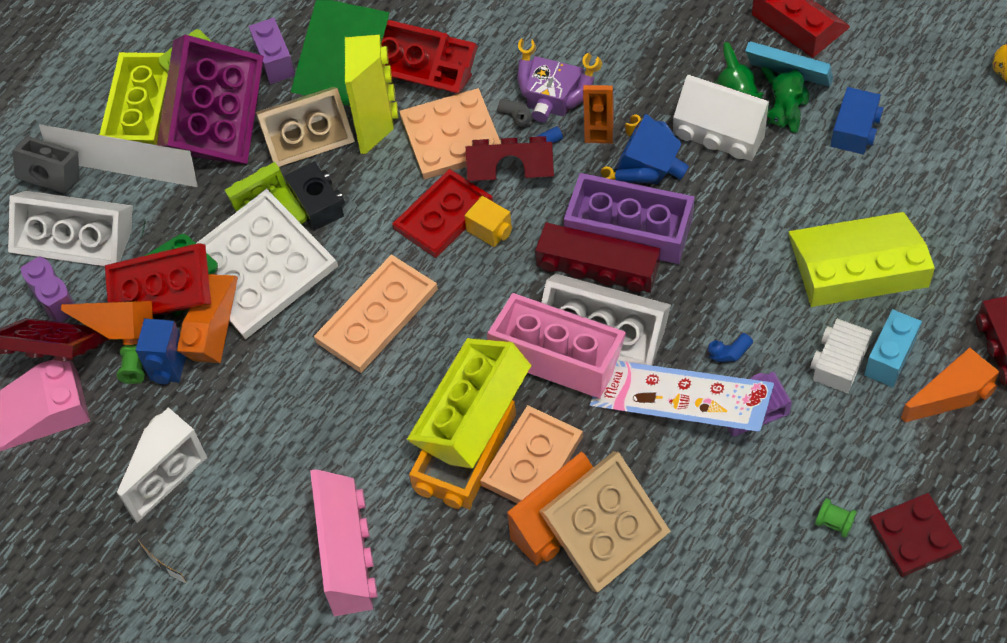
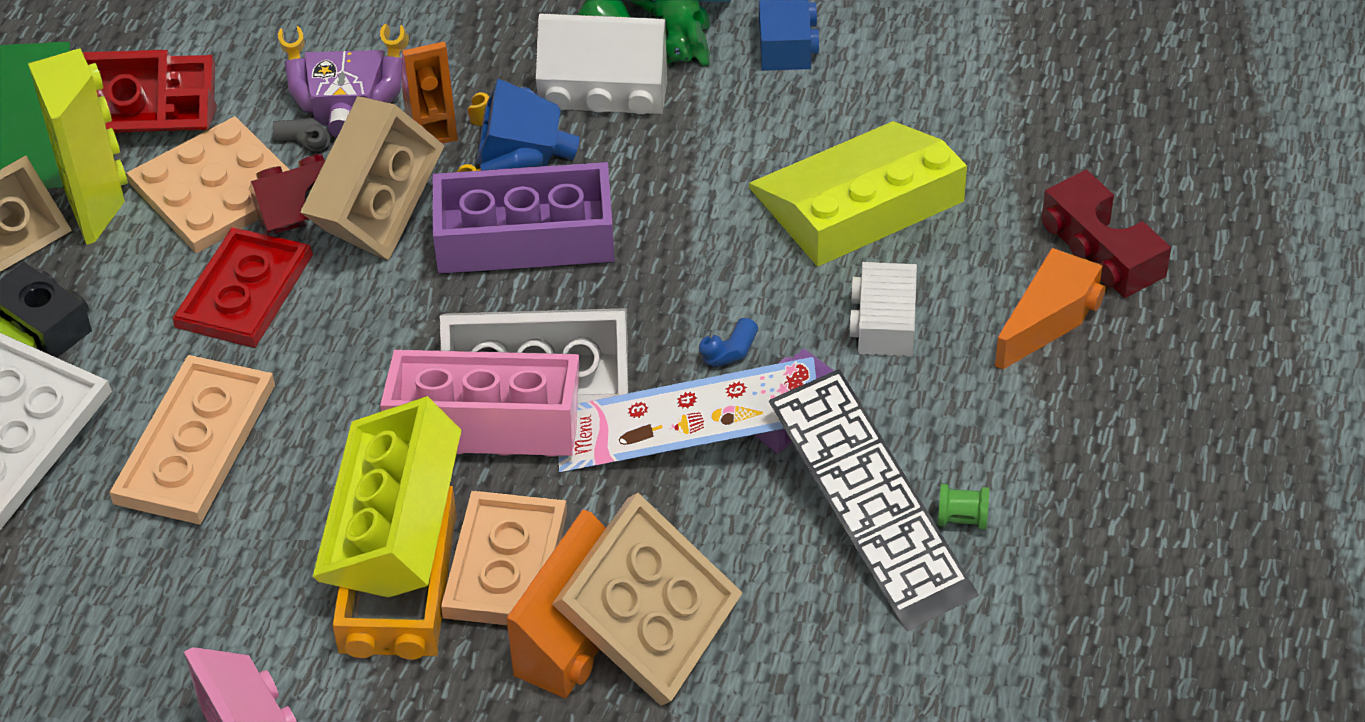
camera: 25 degrees left, 10 degrees down
(488, 221) = (318, 276): yellow brick -> none
(541, 165) = (373, 177): none -> tan slope
(597, 257) = (496, 279): dark red brick -> none
(776, 496) = (873, 500): none -> sticker
(892, 348) = (950, 280): medium azure brick -> none
(915, 534) = (1075, 498): dark red plate -> none

